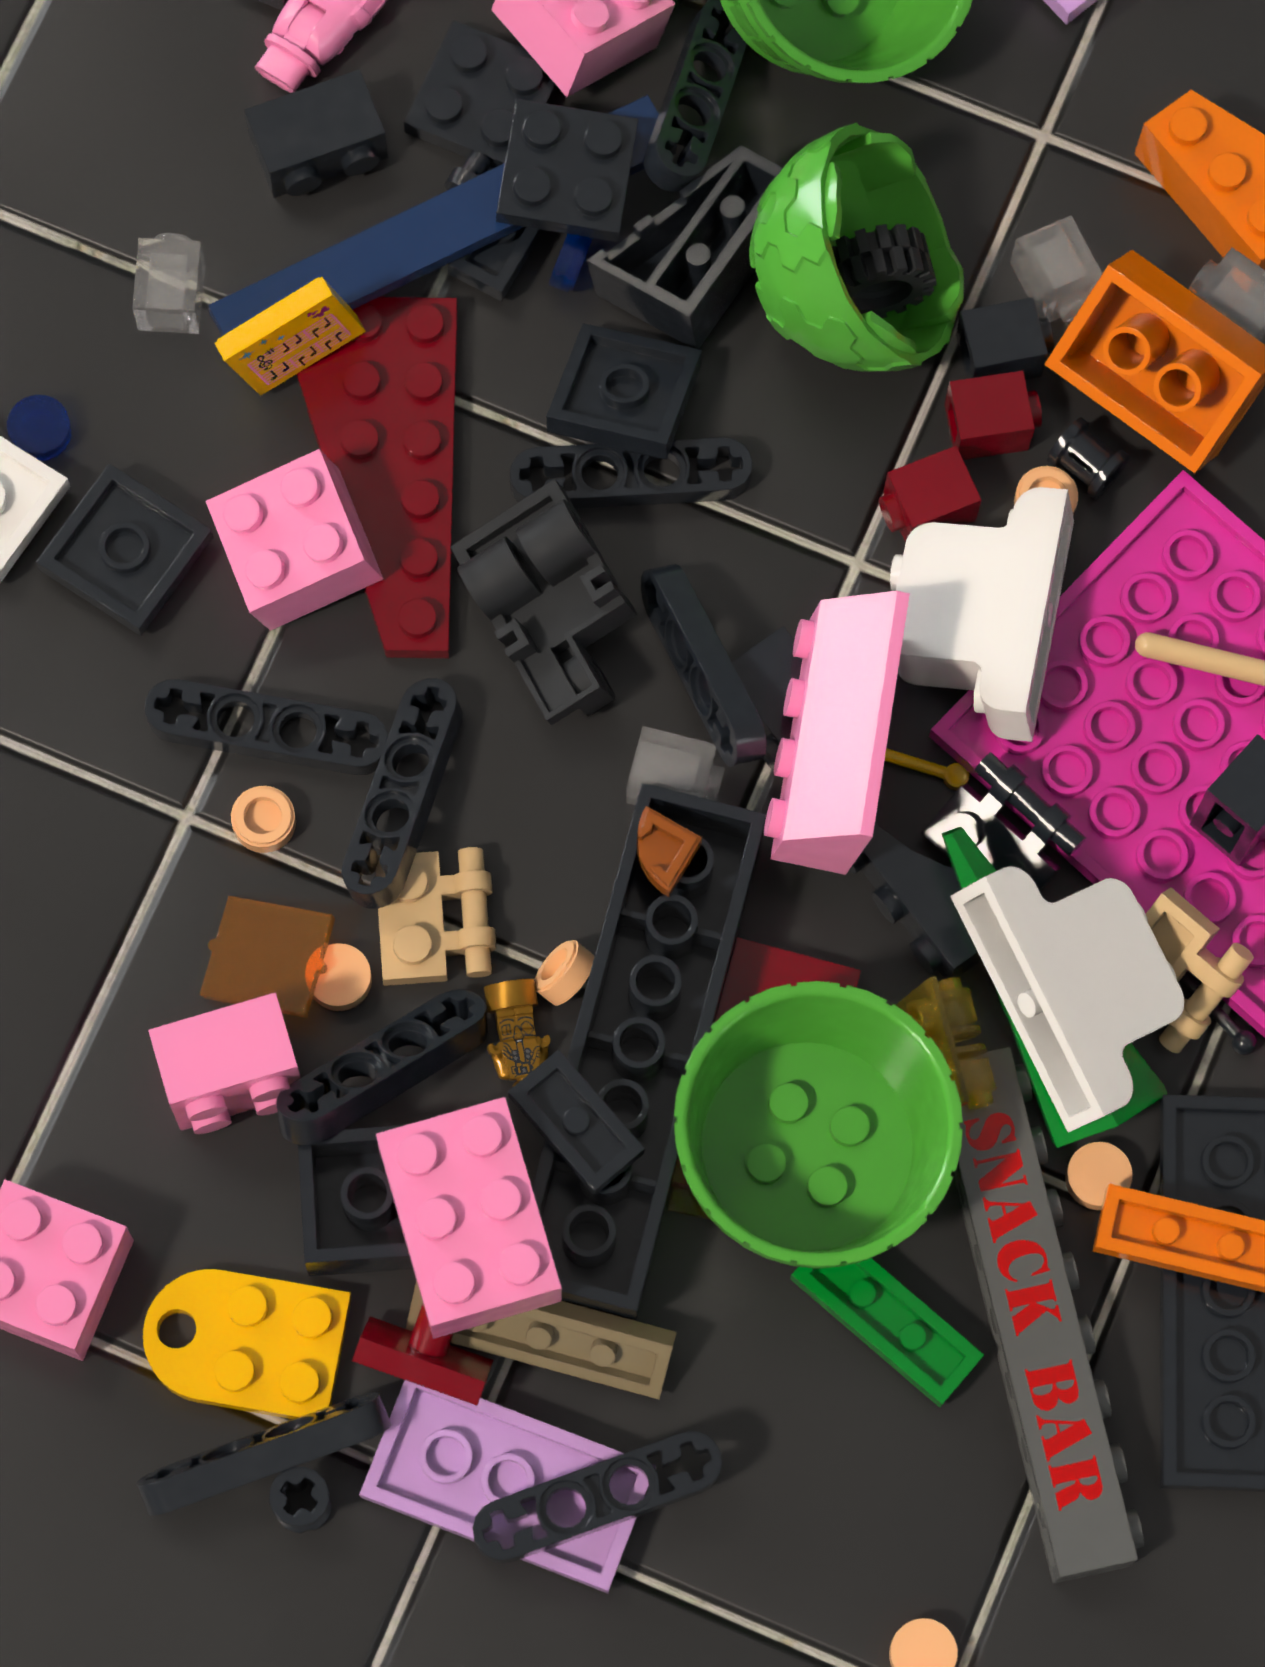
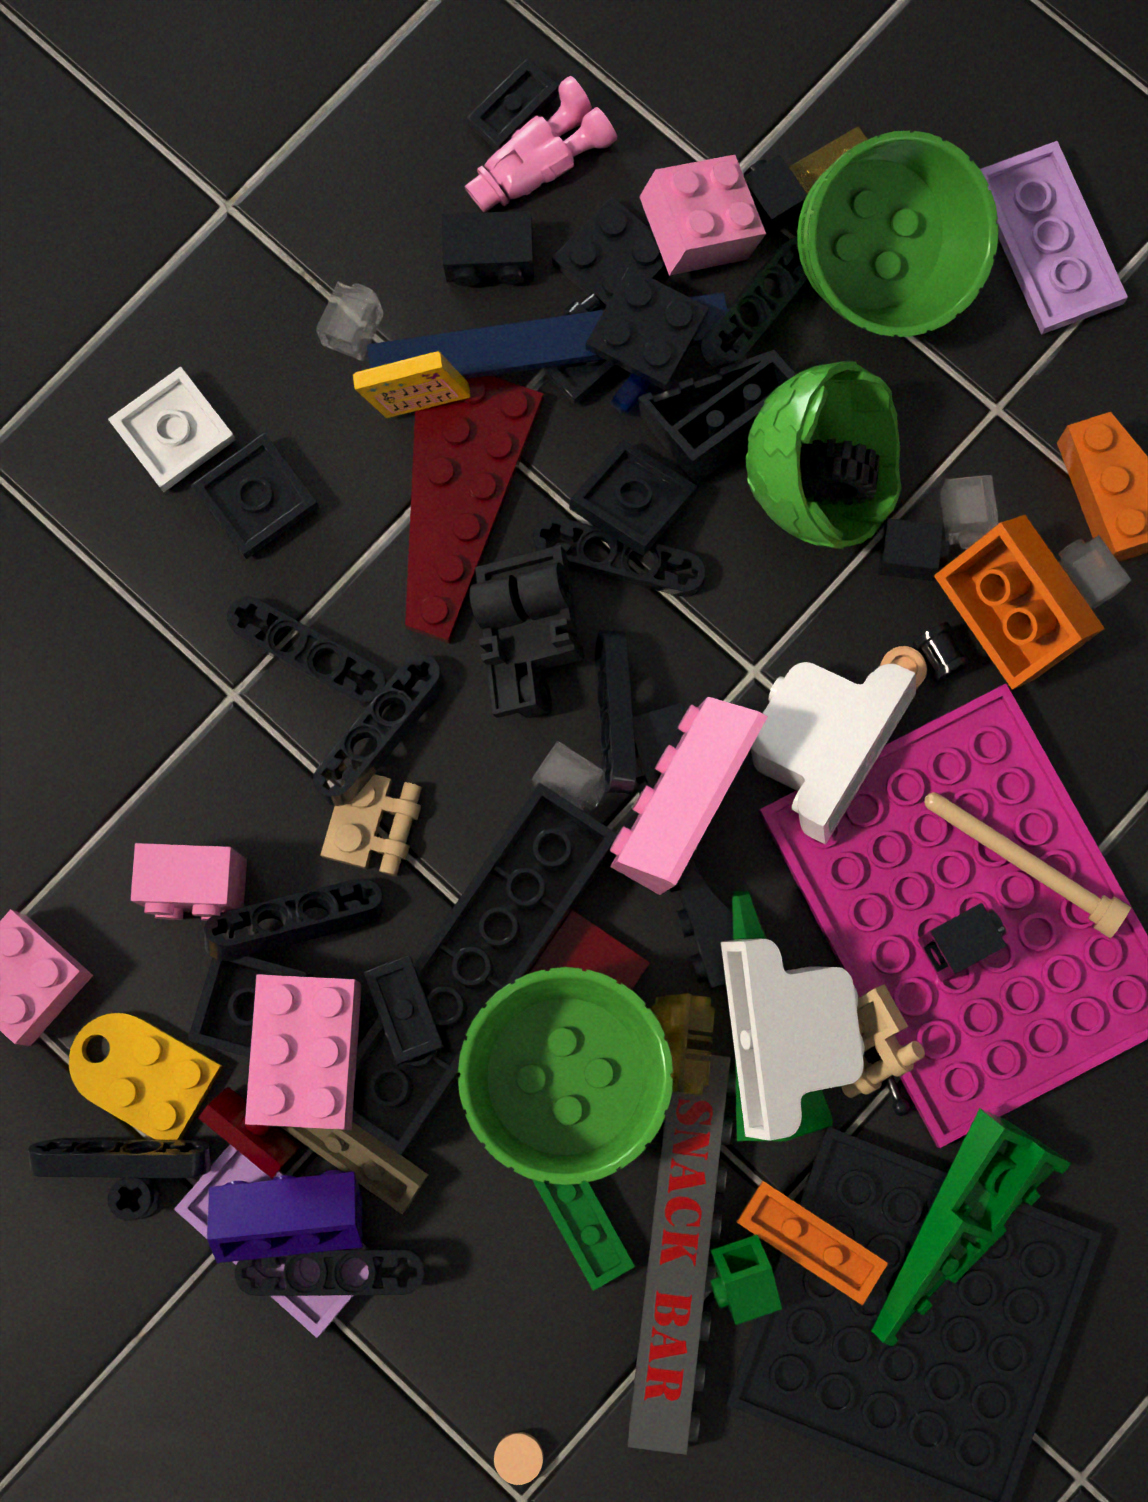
camera: 30 degrees right, 5 degrees up
(39, 426) = (229, 391): clear blue tile -> none
(263, 819) = (282, 714): light nougat tile -> none
(267, 951) = (249, 812): clear orange piece -> none
(294, 540) = (368, 528): bright pink brick -> none
(346, 978) = (293, 842): light nougat tile -> none
(516, 1441) = (285, 1216): none -> dark purple brick
(518, 1047) = (395, 938): pearl gold piece -> none
(564, 972) = (443, 893): light nougat tile -> none
(664, 849) = (536, 836): dark orange tile -> none
(928, 492) = (820, 641): dark red brick -> none
(953, 775) = (765, 845): yellow hinge -> none
(992, 414) = (885, 599): dark red brick -> none
(996, 835) = (775, 904): black plate -> none
(1093, 1169) = (763, 1163): light nougat tile -> none
(1132, 1313) = (745, 1280): none -> green brick

